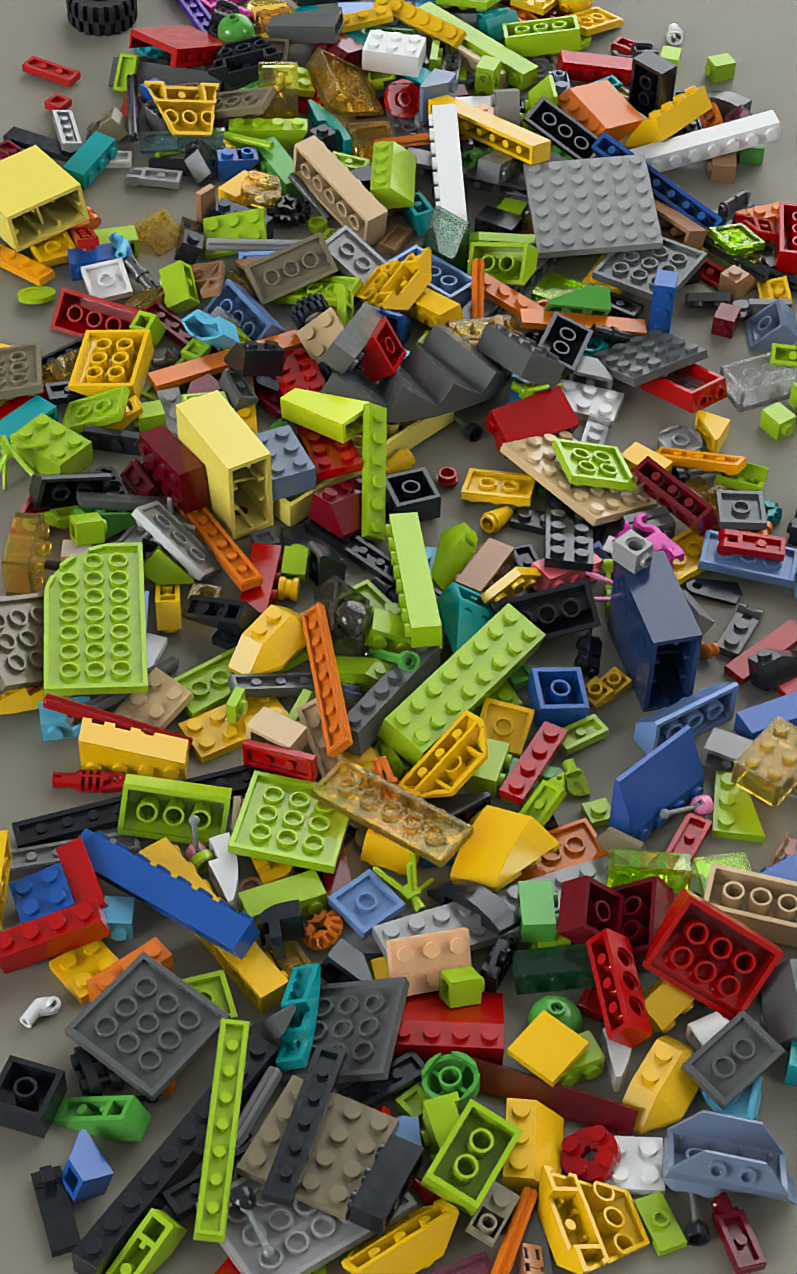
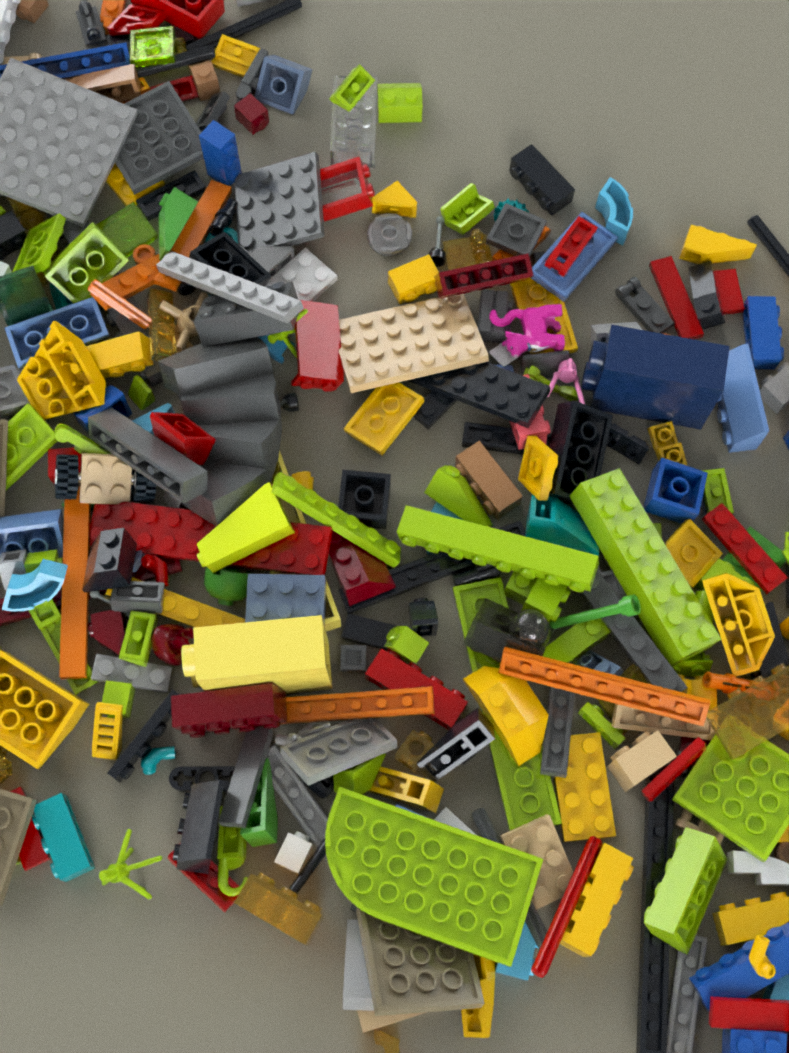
camera: 65 degrees left, 25 degrees up
(58, 393) = (31, 780): black plate -> none
(63, 451) = (105, 821): lime brick -> none
(87, 529) = (281, 832): lime brick -> none
(90, 781) = (606, 954): red hinge -> none
(97, 409) = (86, 754): lime tile -> none
(117, 456) = (154, 756): none -> teal arm
(132, 853) = (759, 959): none -> yellow arm
(138, 479) = (210, 748): dark red plate -> none
(172, 357) = (30, 638): dark grey plate -> none
(196, 847) = (730, 885): light grey hinge -> none
(201, 859) = (746, 886): lime tile -> none
(236, 705) = (581, 779): lime plate -> none
(271, 397) = (157, 567): none -> red arm
(288, 588) = (432, 663): yellow wheel -> none
(447, 477) = (342, 453): red plate -> none
(495, 519) = (421, 437): yellow cone -> none
(531, 328) = (230, 287): none -> light grey plate
(575, 780) = (765, 522): lime piece -> none
(593, 465) = (412, 322): lime plate -> none
(595, 429) = (353, 300): light grey plate -> none
(632, 551) = (611, 360): light grey brick -> none
(704, 460) = (434, 230): light orange plate -> none
(715, 590) = (587, 300): black piece -> none
(777, 421) = (408, 143): lime brick -> none

